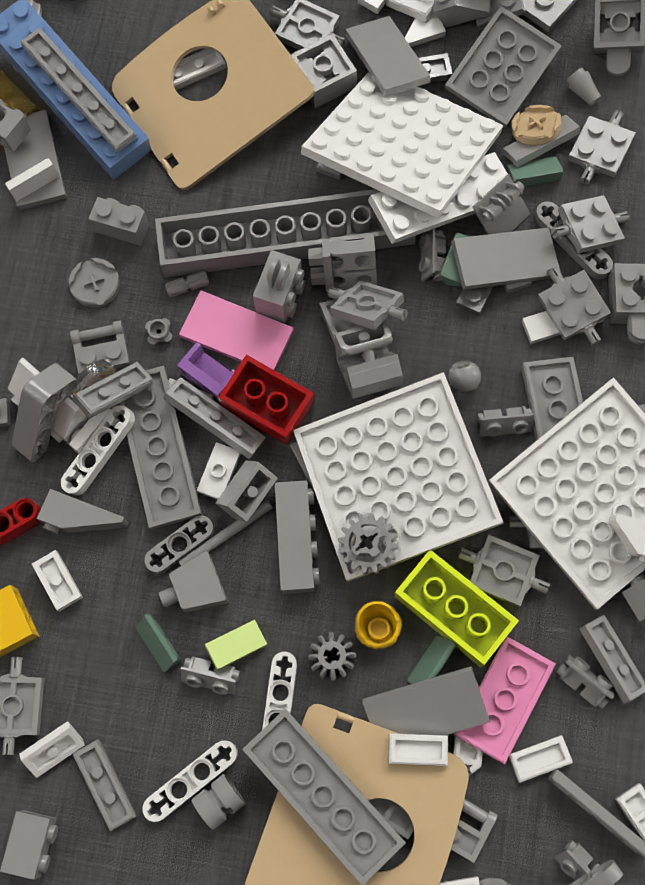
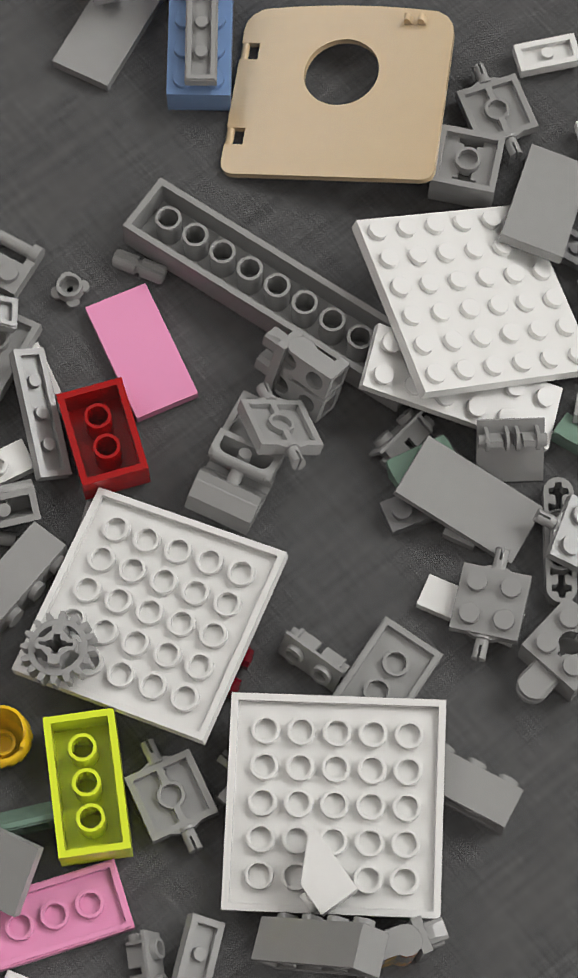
camera: 35 degrees right, 5 degrees down
(32, 179) = (86, 46): white tile -> none
(94, 282) = (55, 193): light grey tile -> none
(119, 220) = (131, 153): light grey brick -> none
(198, 67) = (347, 63): white tile -> none
(204, 371) = (75, 359): medium lavender panel -> none
(279, 287) = (215, 332): light grey brick -> none
(464, 376) = (314, 579): light grey piece -> none

